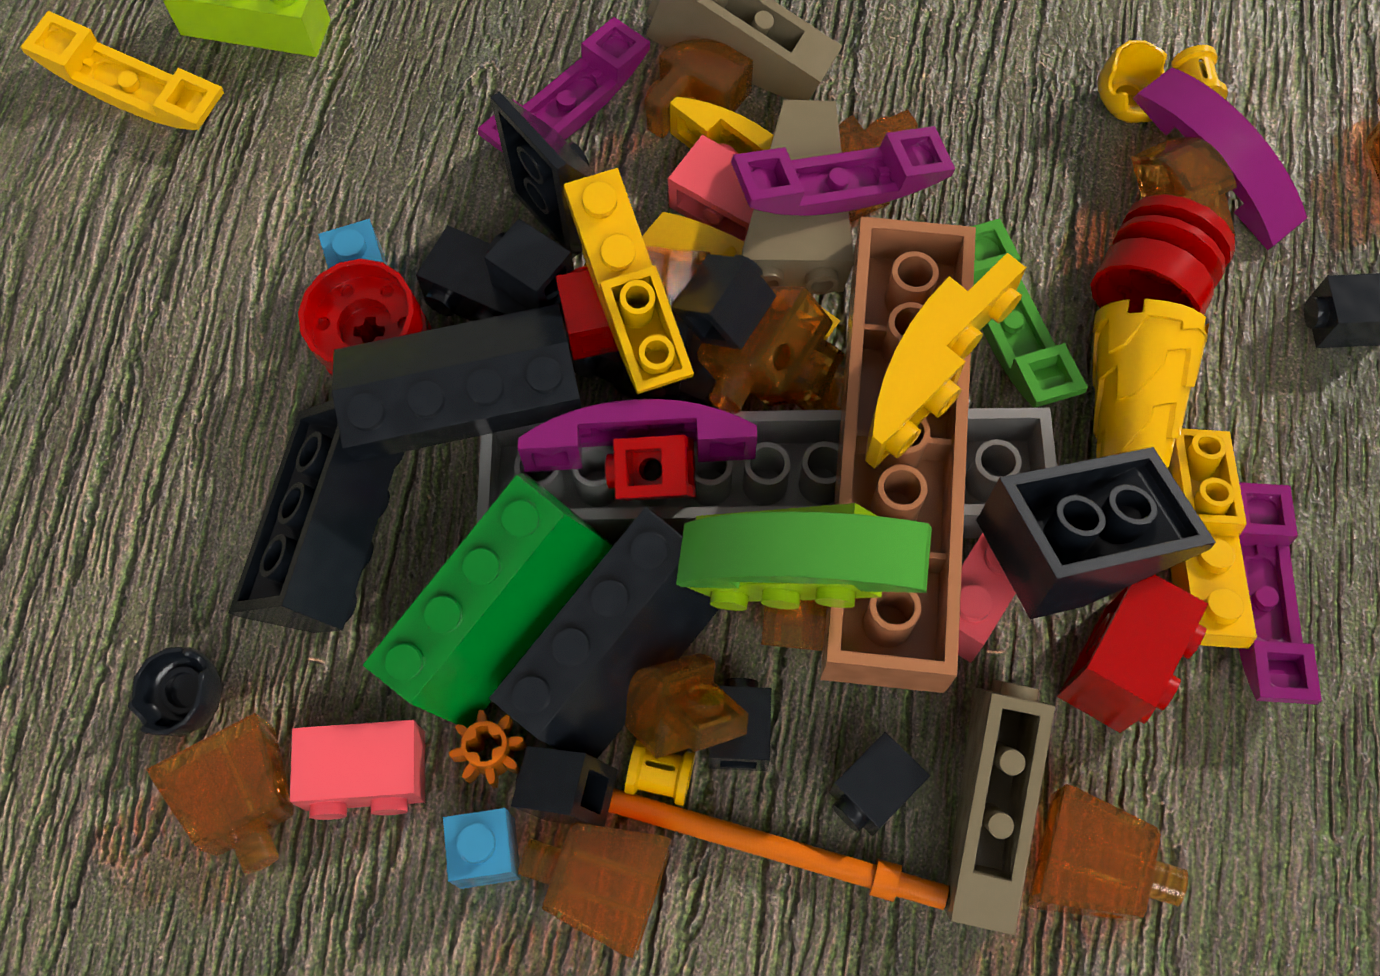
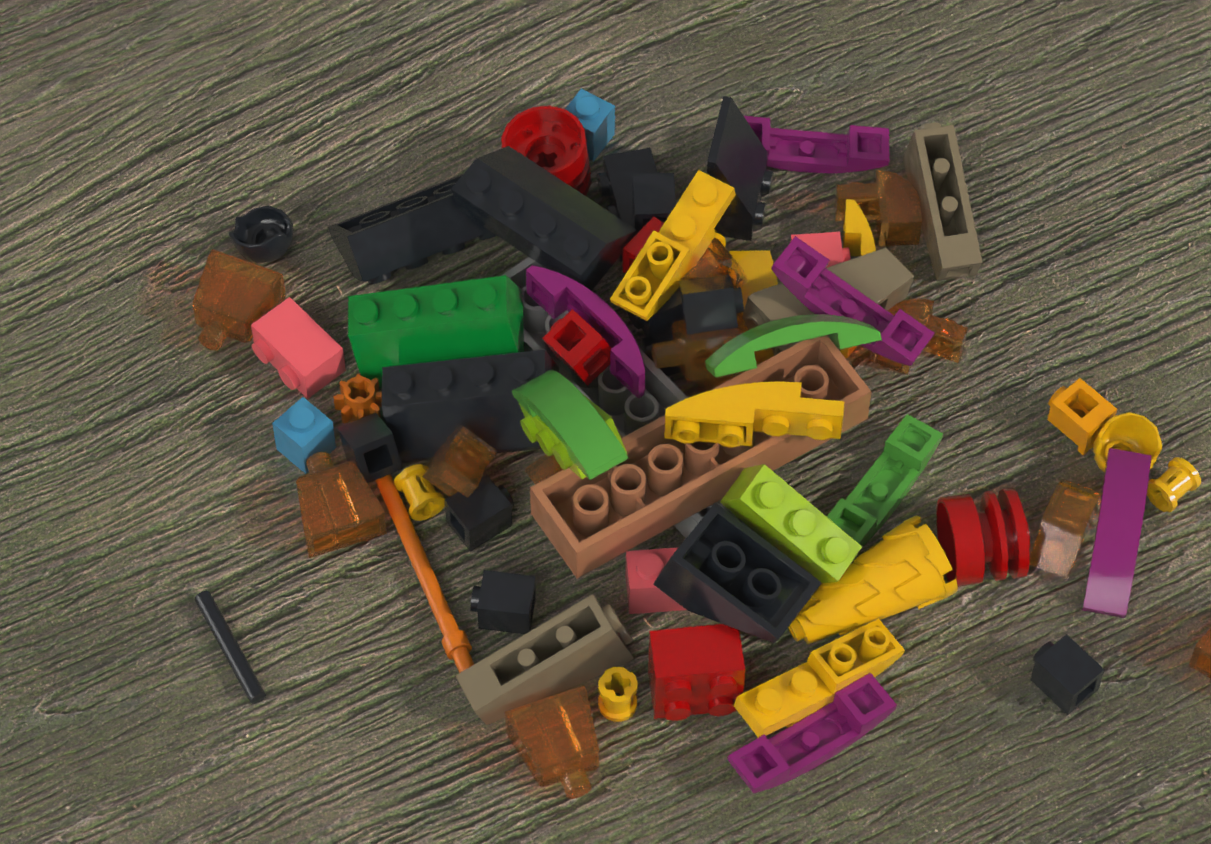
camera: 50 degrees right, 10 degrees down
(824, 310) = (739, 353): none -> bright green slope
(1058, 423) = (790, 523): none -> lime brick
(1068, 92) = (1080, 413): none -> light orange brick
(1100, 749) = (617, 681): none -> yellow bush

